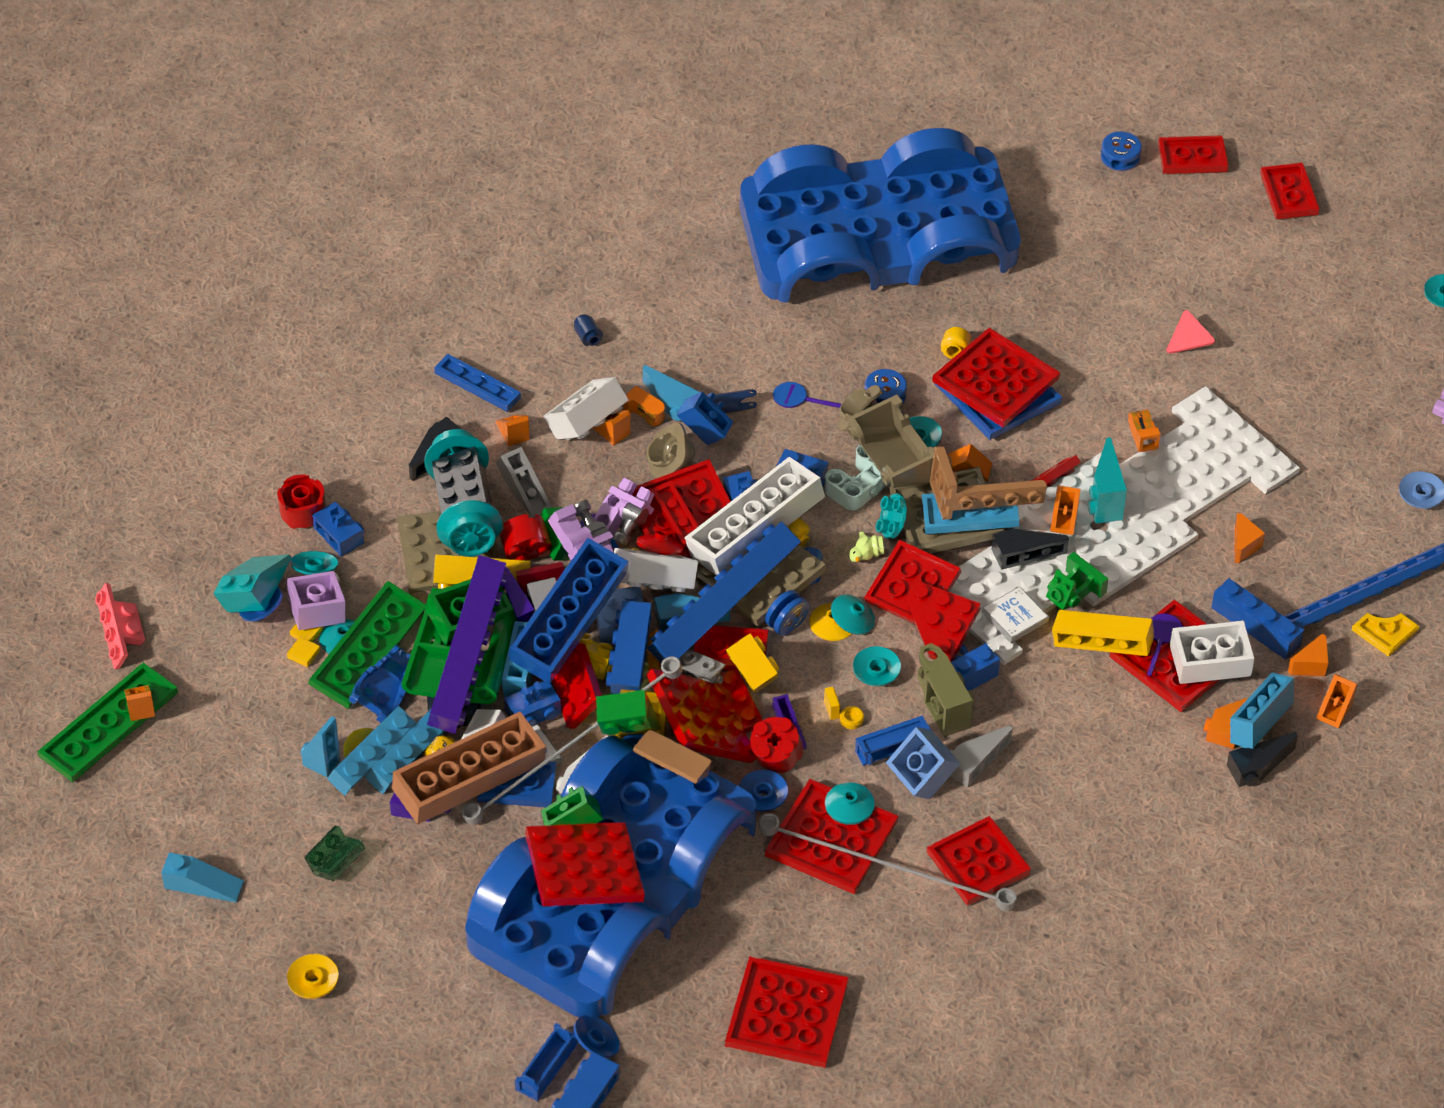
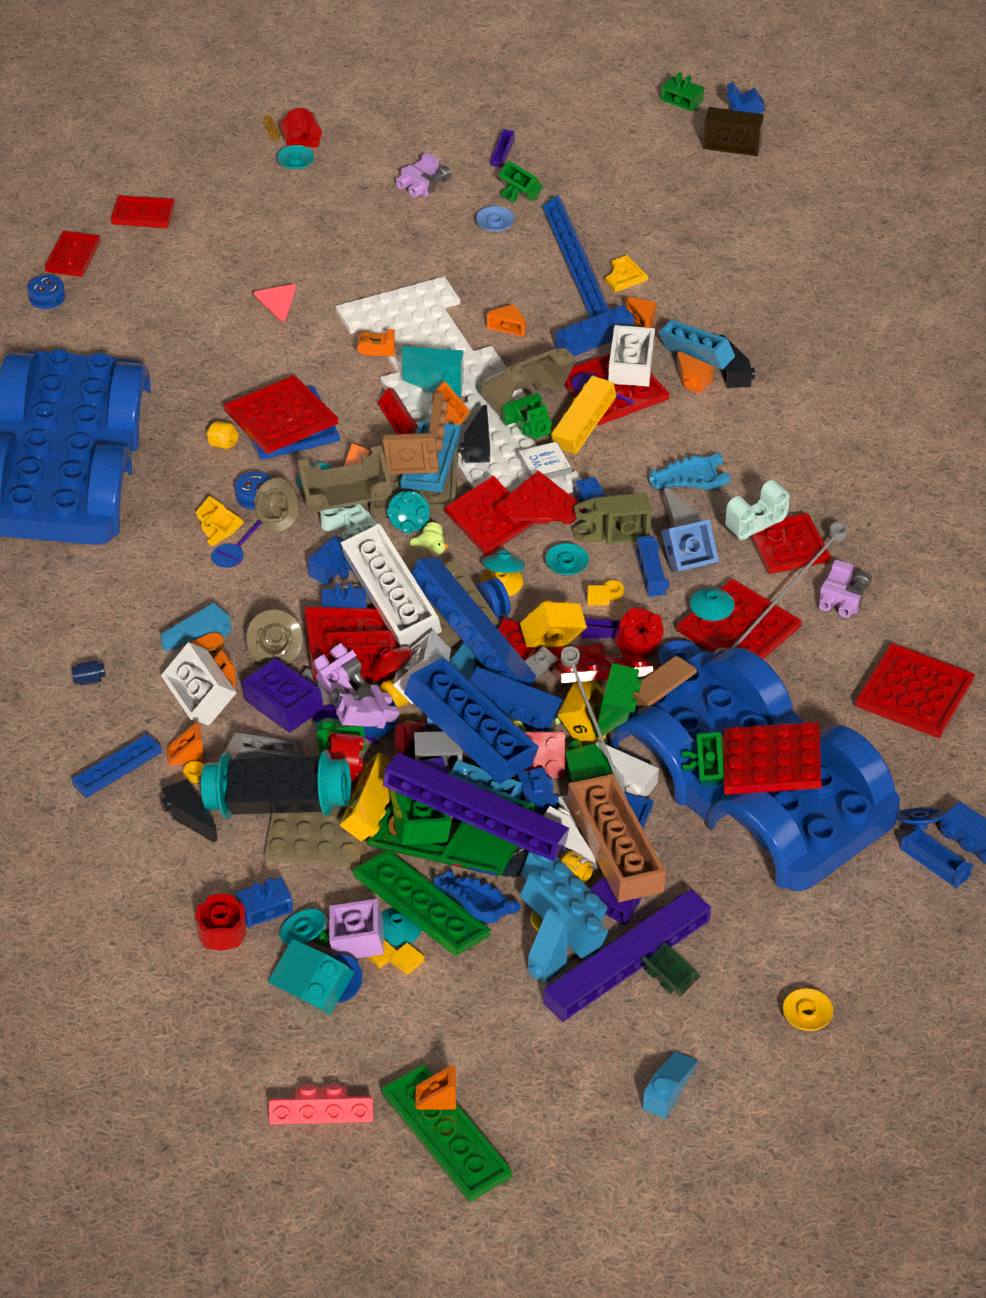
camera: 75 degrees left, 5 degrees down
(331, 808) = (623, 956): none -> dark purple brick
(491, 440) = (193, 771): none -> yellow tile
(569, 729) = (585, 762): none -> green torso
(596, 473) = (282, 695): none -> dark purple piece
(705, 417) = (245, 604): blue brick -> none
(733, 400) = (224, 591): dark blue piece -> none
(836, 369) = (215, 517): none -> yellow slope
(916, 915) = (839, 594): none -> lavender hips
(978, 806) = (770, 509): none -> light aqua beam
(1054, 752) = (691, 473): none -> dark azure animal
(1107, 543) = (544, 371): none -> dark tan windscreen
(1337, 701) = (689, 310): orange slope -> none

